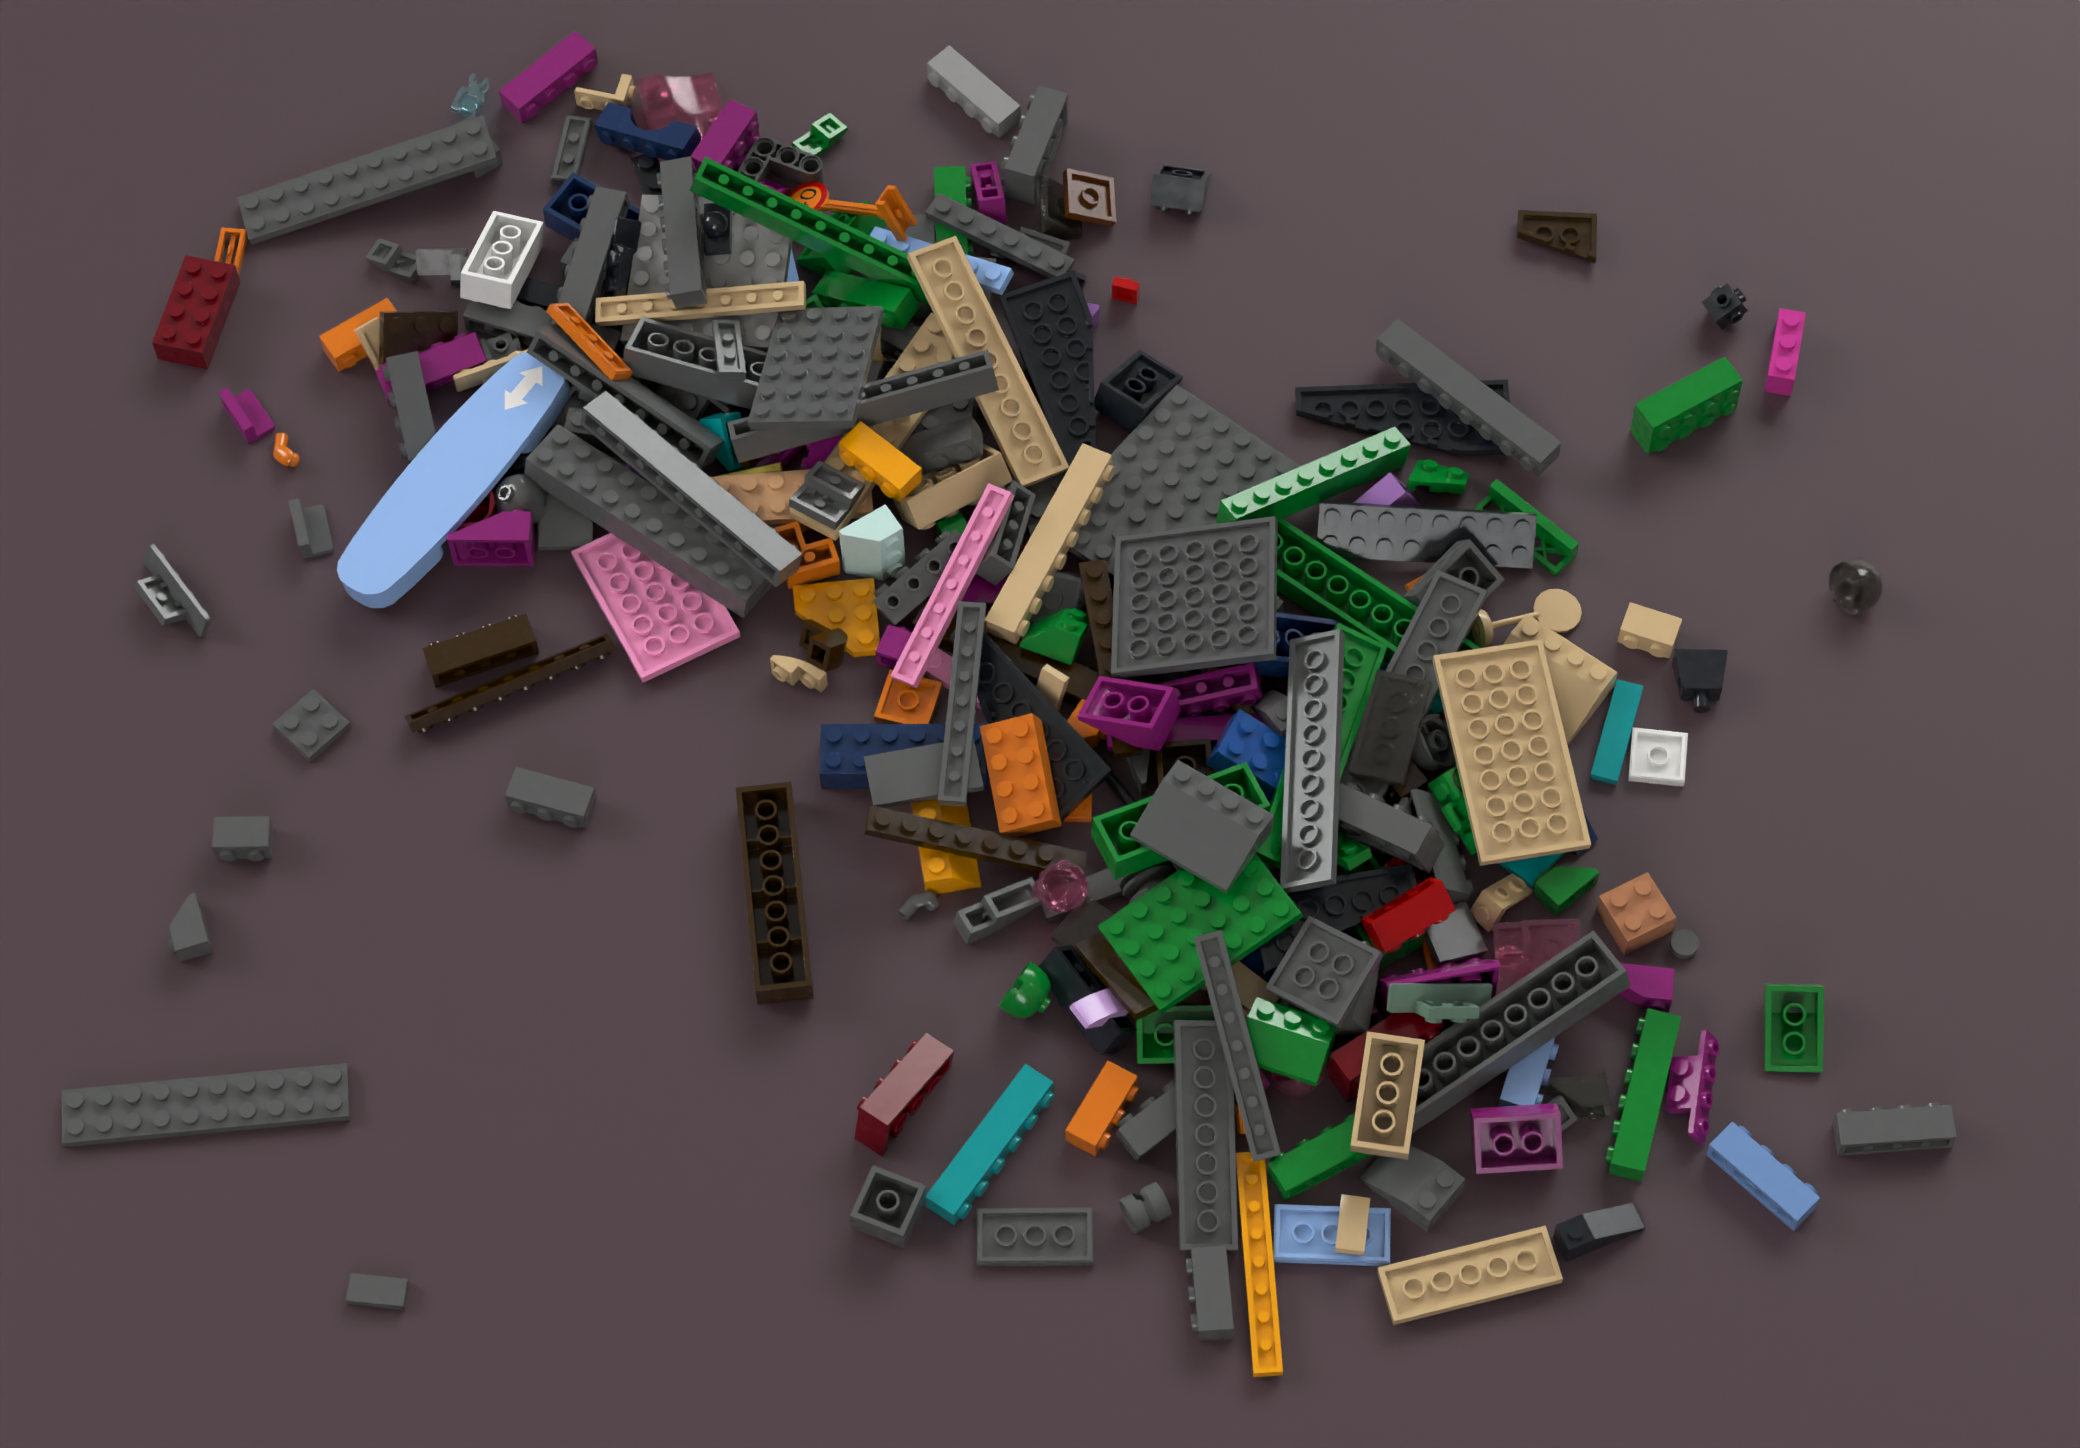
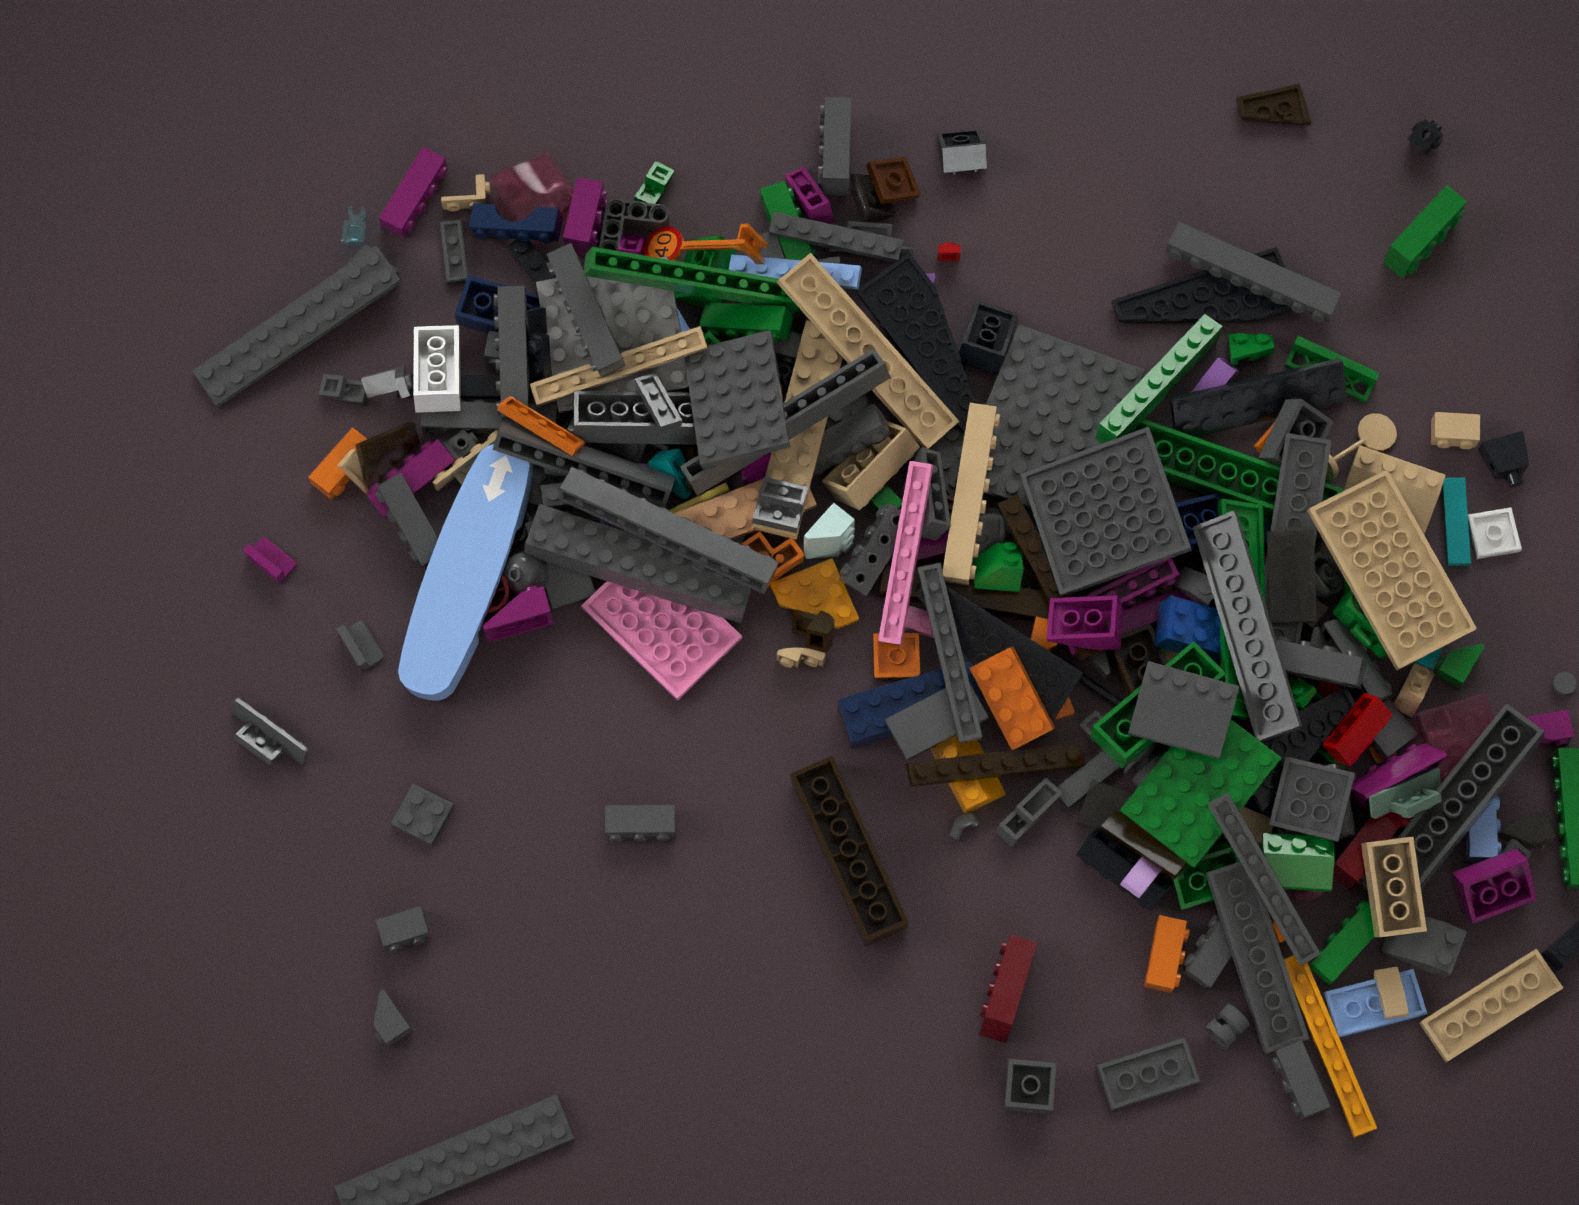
camera: 20 degrees left, 10 degrees up
(196, 312) = (196, 482): dark red brick -> none
(240, 249) = (213, 436): orange tile -> none
(283, 453) = (313, 586): orange arm -> none
(480, 650) = (538, 711): dark brown brick -> none
(517, 680) = (571, 733): dark brown plate -> none
(717, 230) = (611, 299): black tile -> none
(880, 462) = (814, 465): light orange brick -> none
(892, 645) = (870, 613): magenta brick -> none
(973, 92) = (766, 111): light grey brick -> none
(990, 1144) = (1089, 1009): teal brick -> none
(1027, 993) = (1077, 877): green cylinder -> none
(1052, 685) = (1011, 613): tan tile -> none
(1061, 886) = (1075, 781): clear pink hair -> none
(1636, 913) = (1521, 670): nougat brick -> none
(1785, 352) = (1484, 163): dark pink brick -> none

